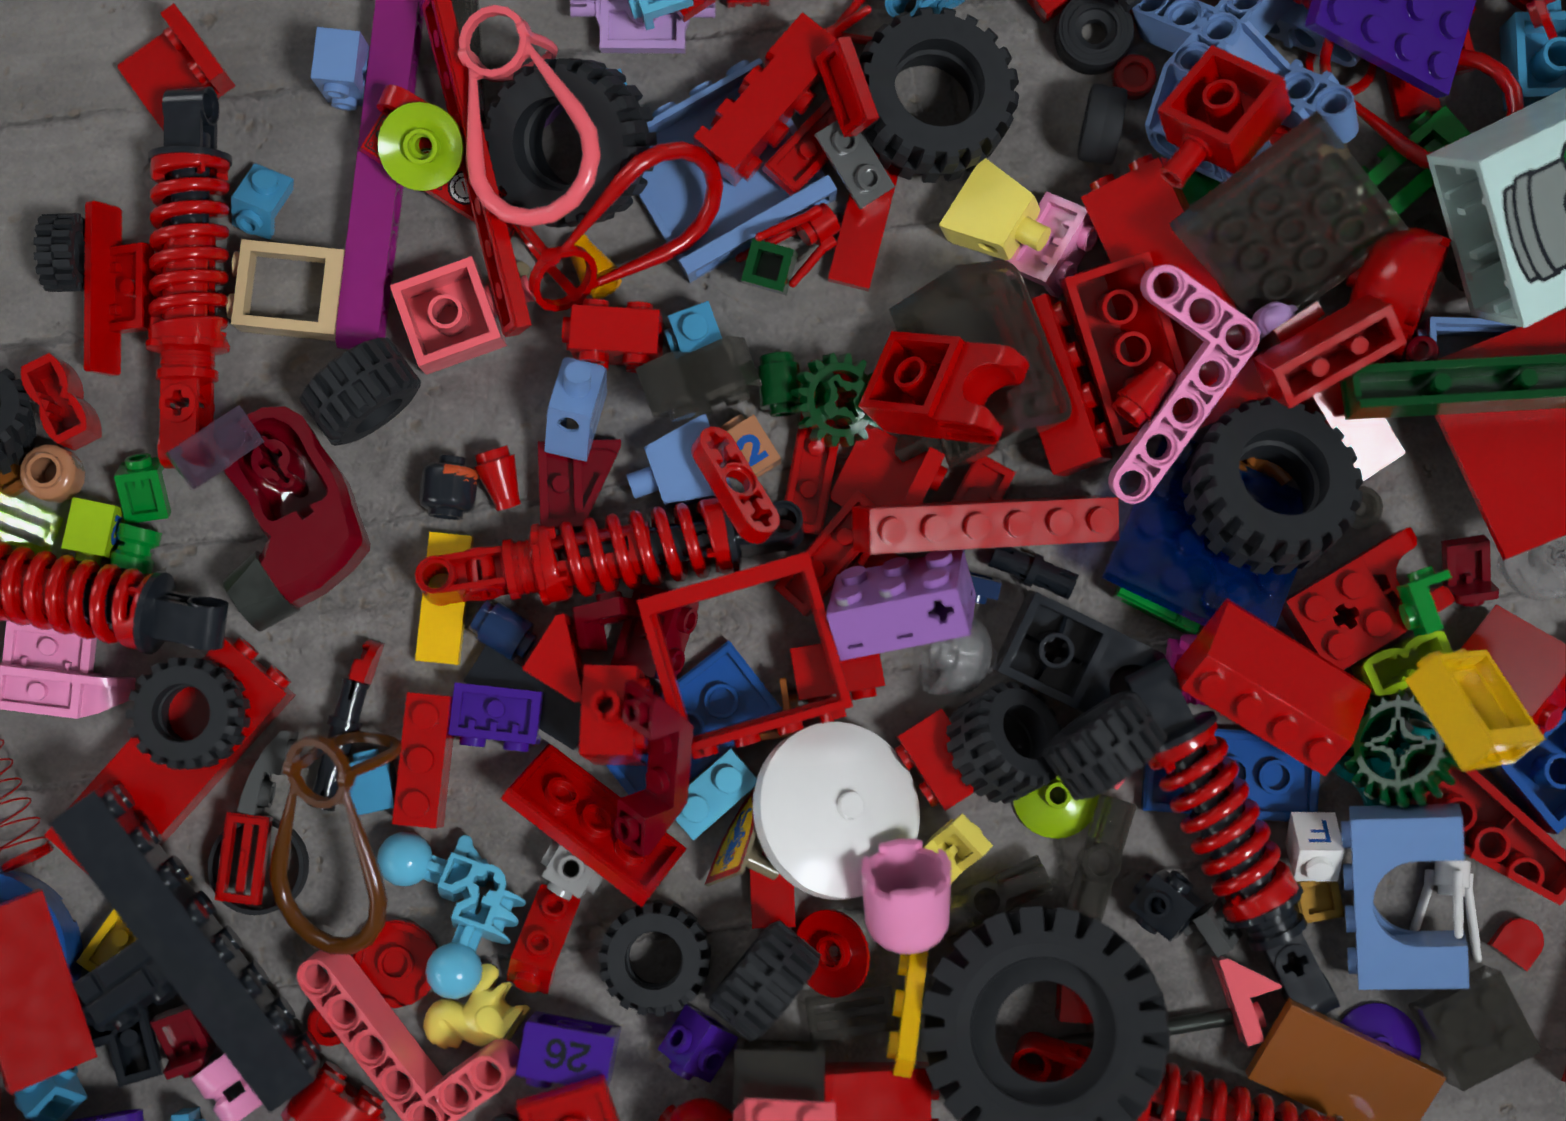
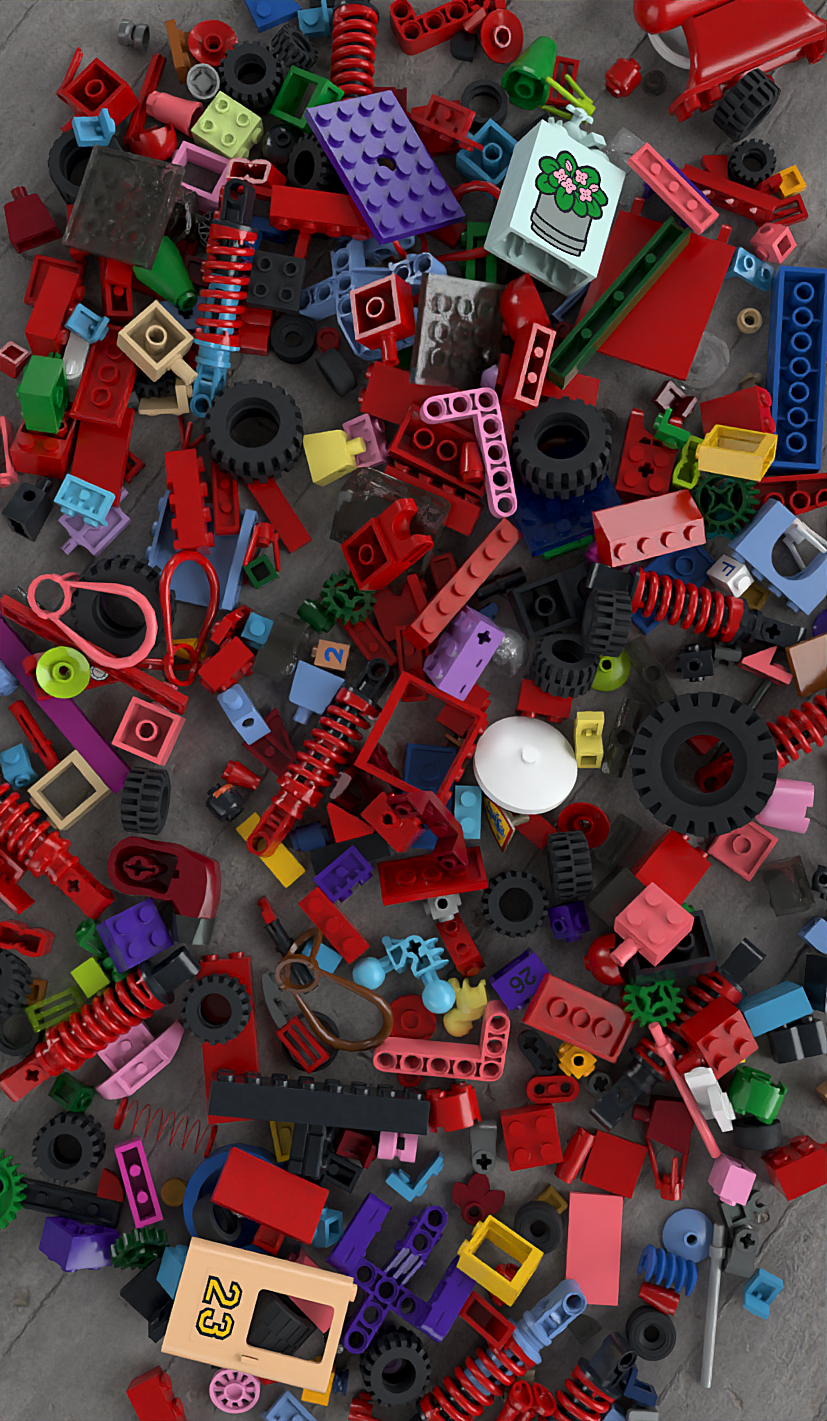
camera: 50 degrees left, 0 degrees up
(52, 473) = (50, 971): nougat head -> none
(187, 532) = (134, 935): none -> dark purple brick
(214, 447) = (110, 887): clear purple brick -> none
(312, 204) = (34, 734): none -> red pin
(668, 290) = (230, 625): none -> red wing
(718, 448) = (325, 672): red beam -> none
(847, 87) = (216, 463): red tile -> none
(855, 164) = (250, 491): dark grey hinge -> none
(906, 896) = (591, 768): bright pink cylinder -> none
(908, 1007) = (637, 812): yellow plate -> none

